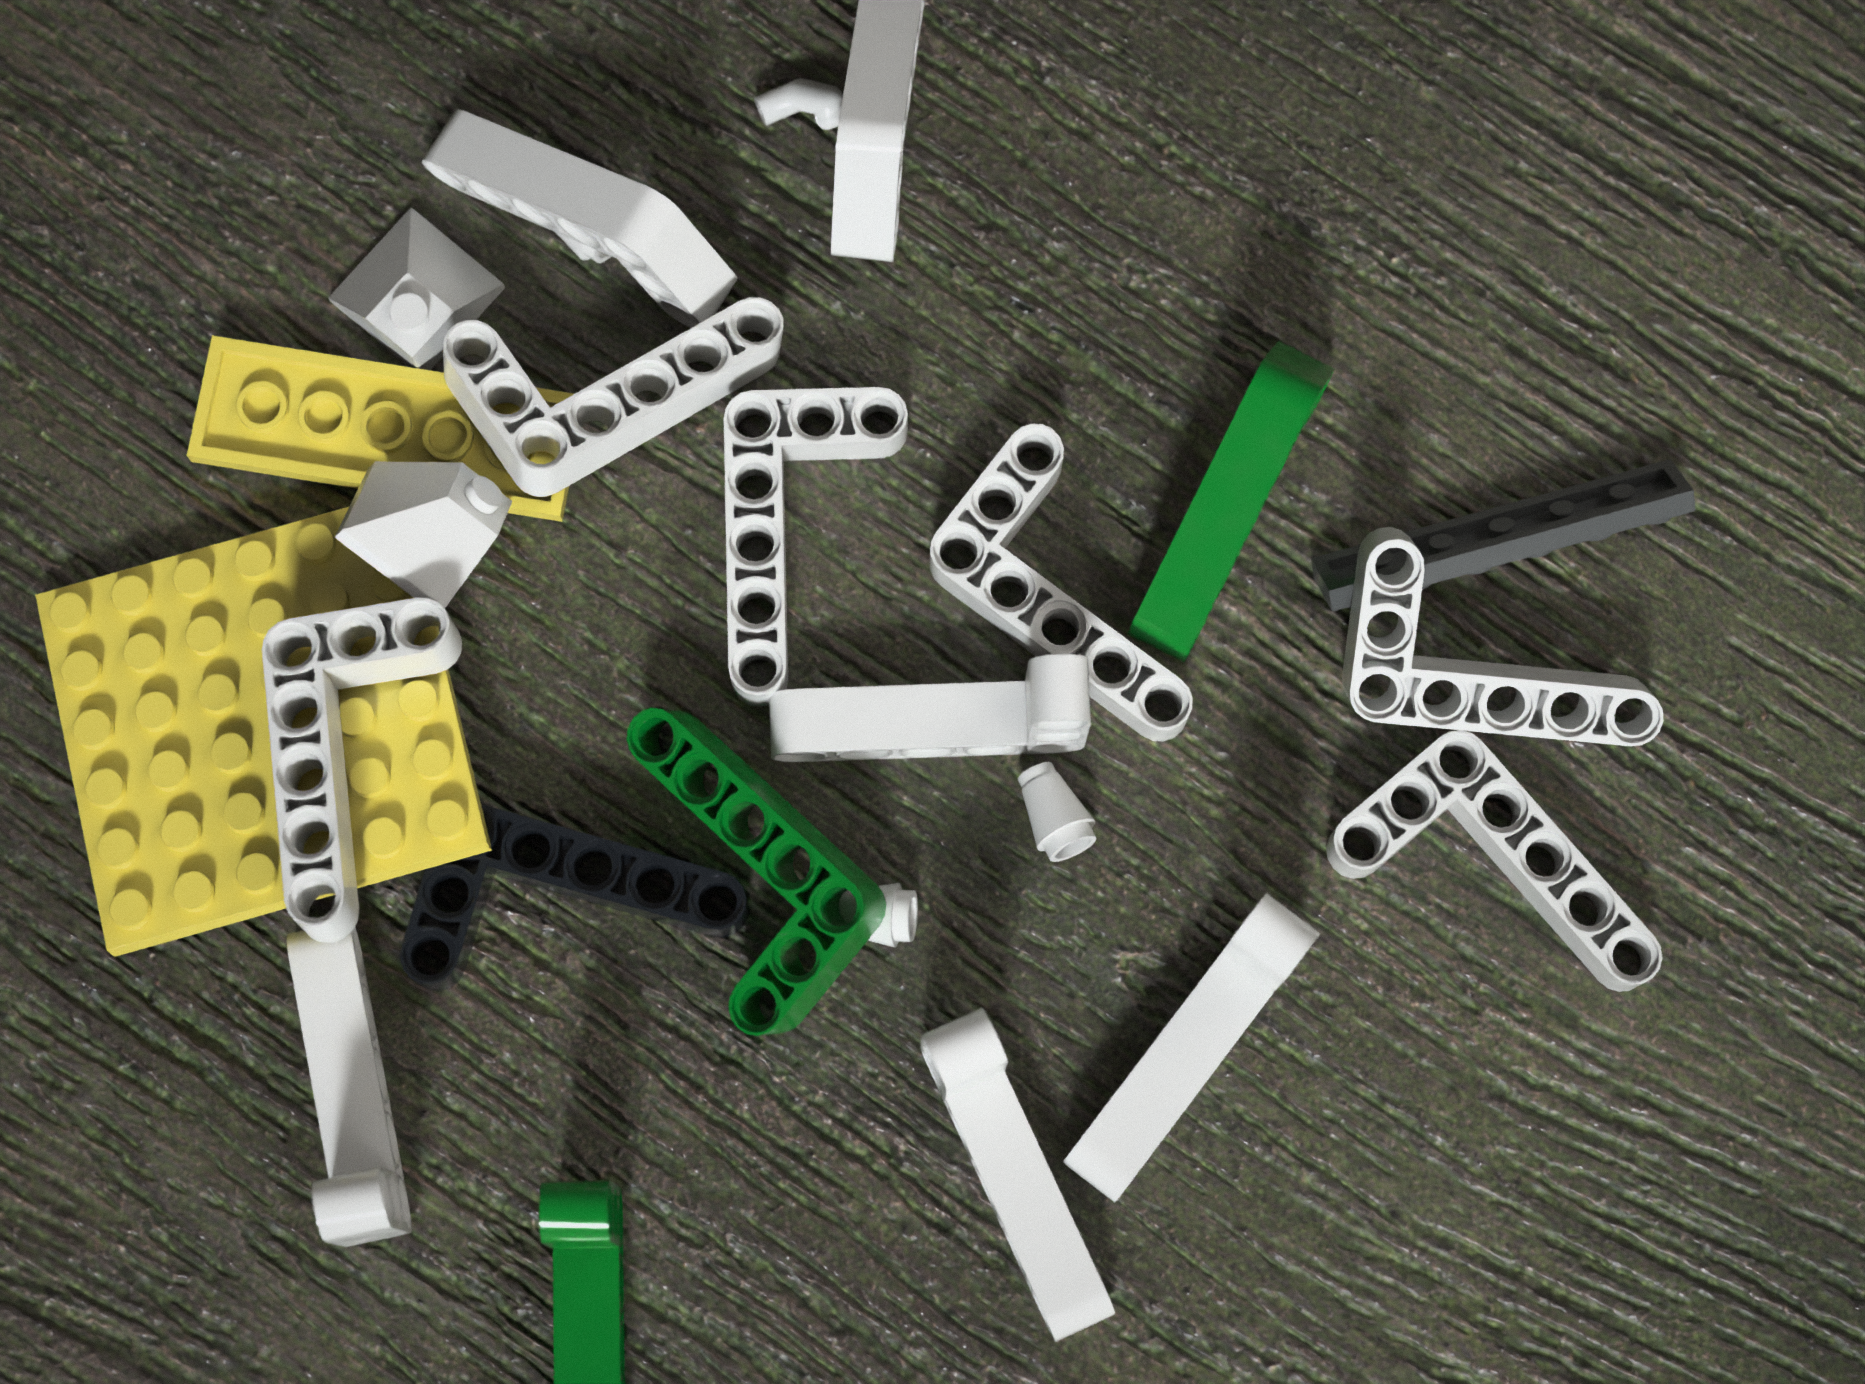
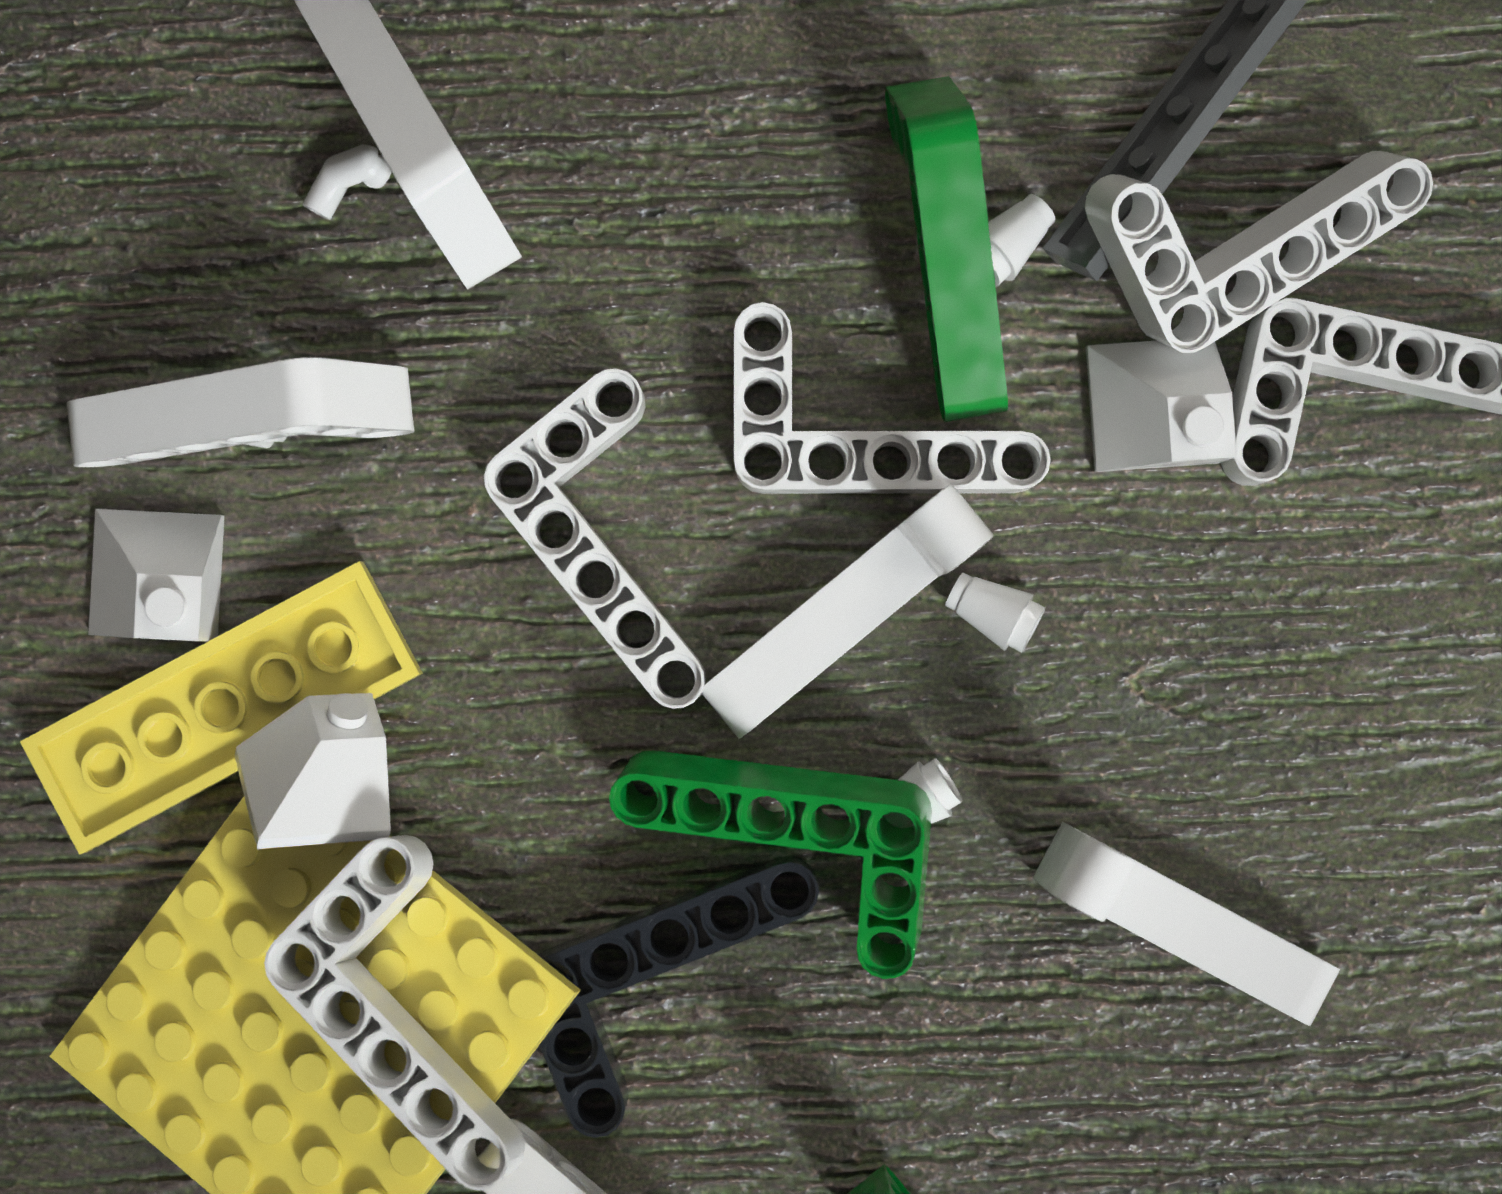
camera: 35 degrees left, 10 degrees up
(607, 400) = (385, 553): white beam -> none
(1191, 1047) = (1244, 715): white beam -> none
(1290, 531) = (1017, 235): none -> white cone
(1308, 750) = (1158, 406): none -> white slope

